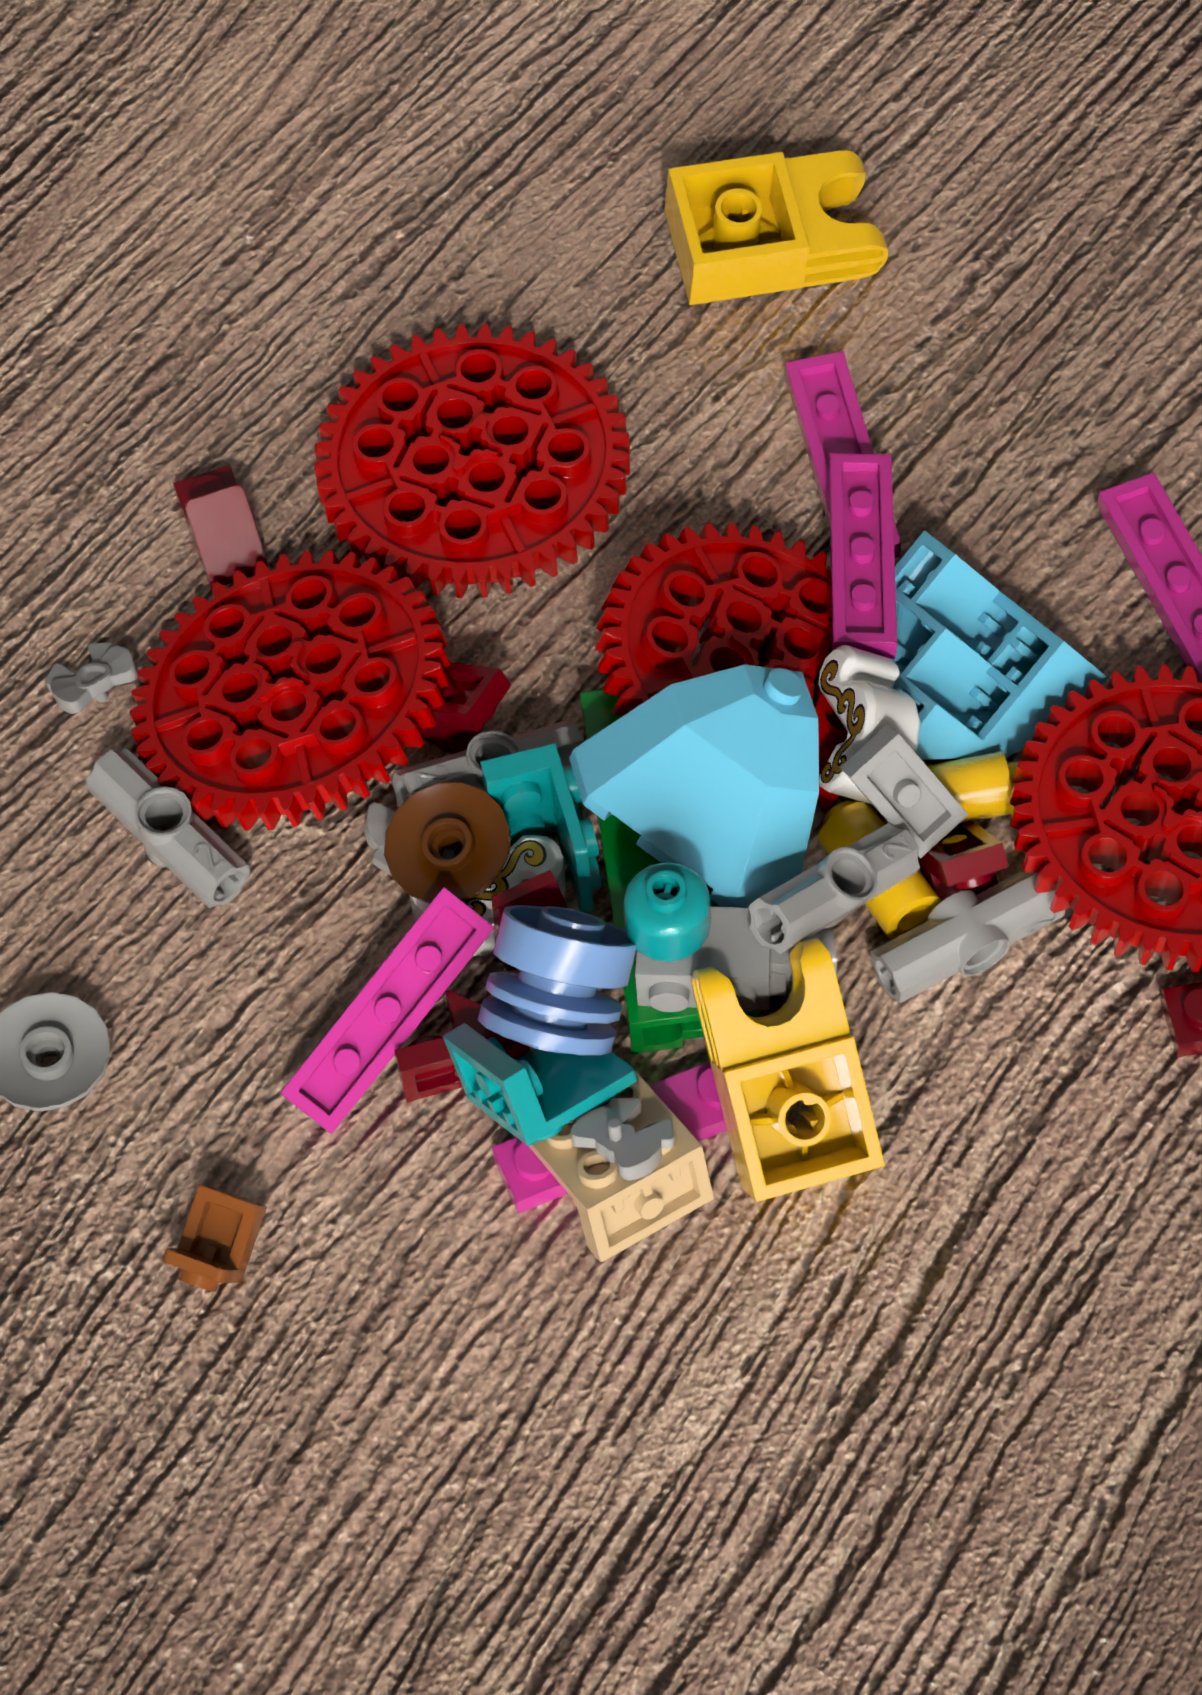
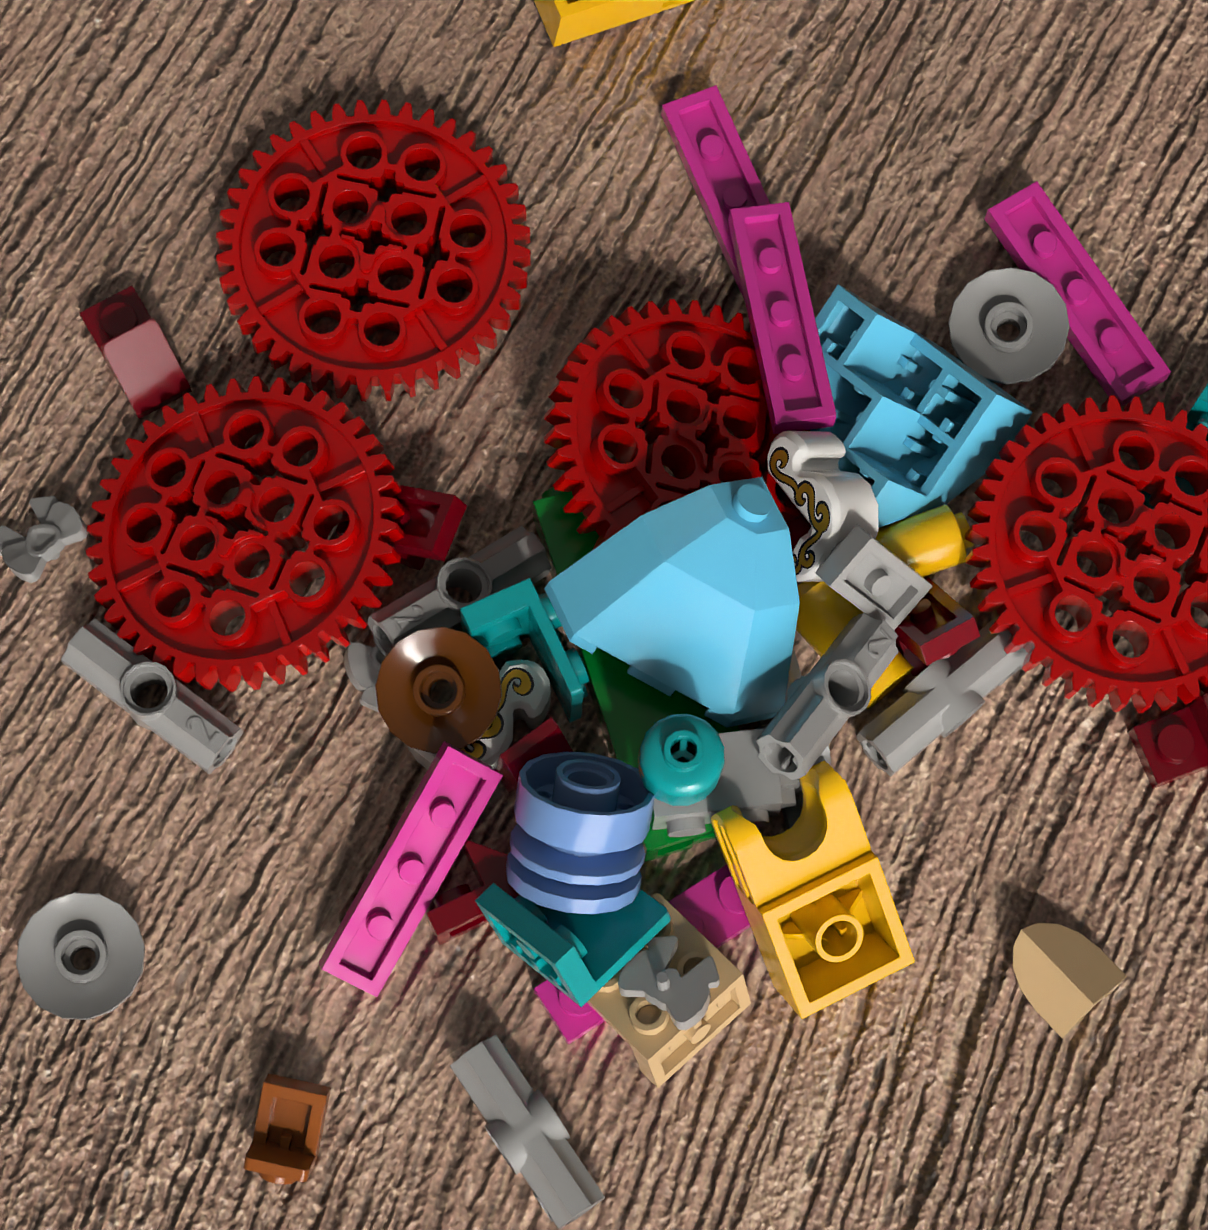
camera: 20 degrees left, 15 degrees up
(457, 1279) = (527, 1131): none -> light grey piece
(1043, 1211) = (1062, 973): none -> tan brick
(1097, 579) = (1014, 299): none -> light grey dish

